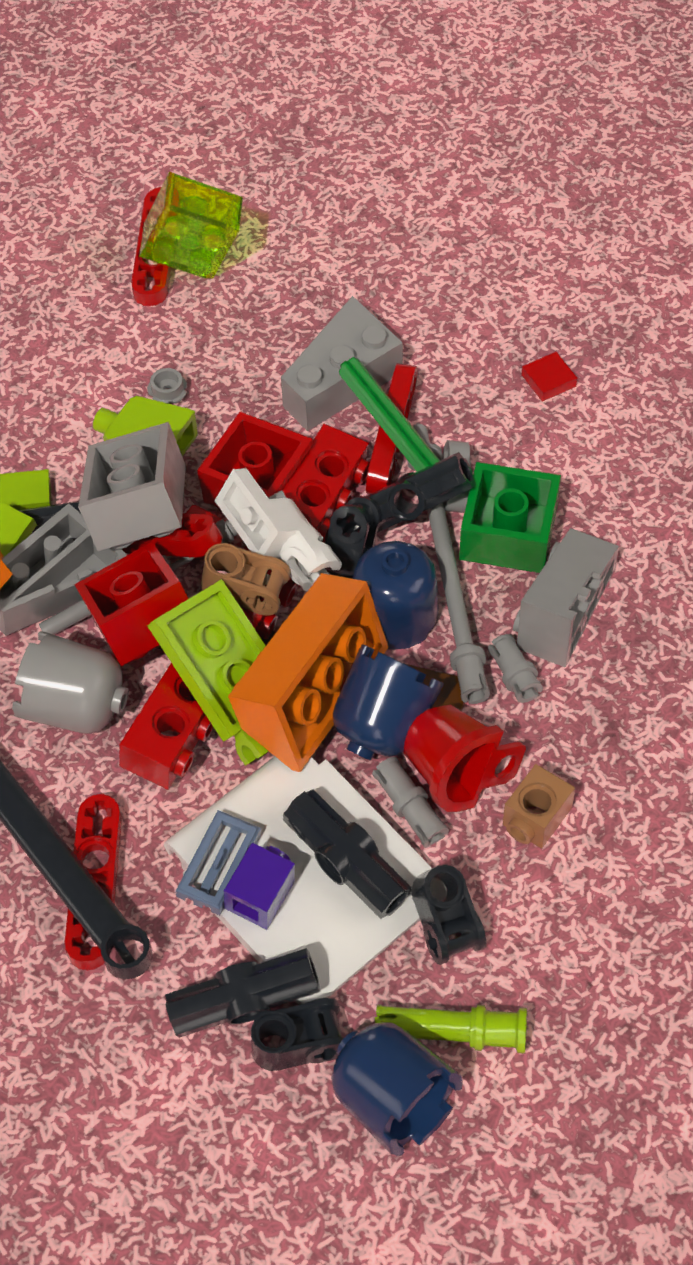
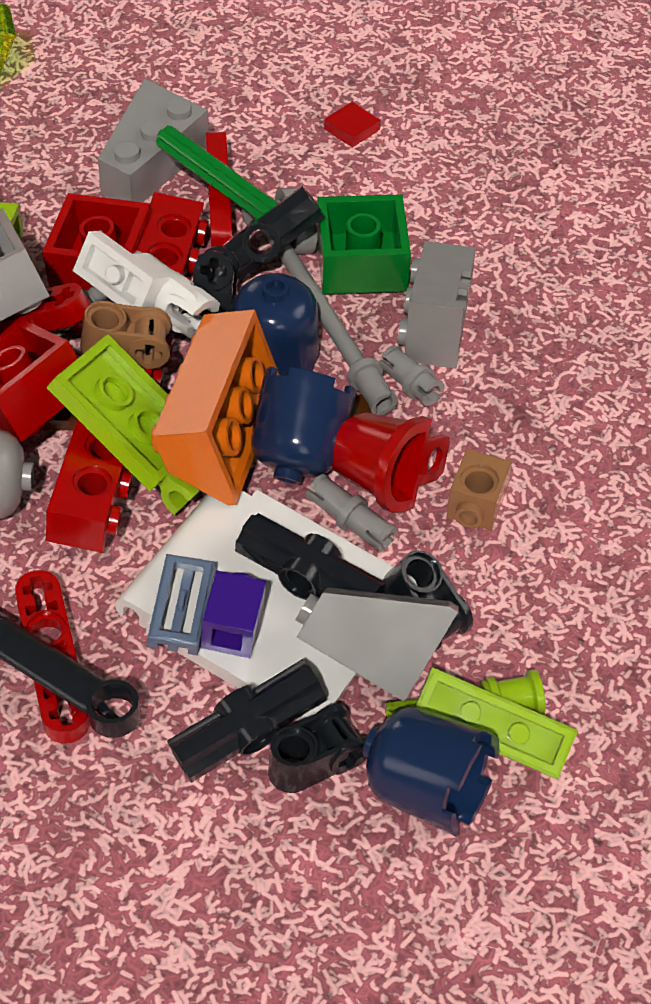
camera: 20 degrees left, 5 degrees down
(382, 939) = (377, 633): none -> light grey slope
(473, 1053) = (521, 731): none -> lime tile

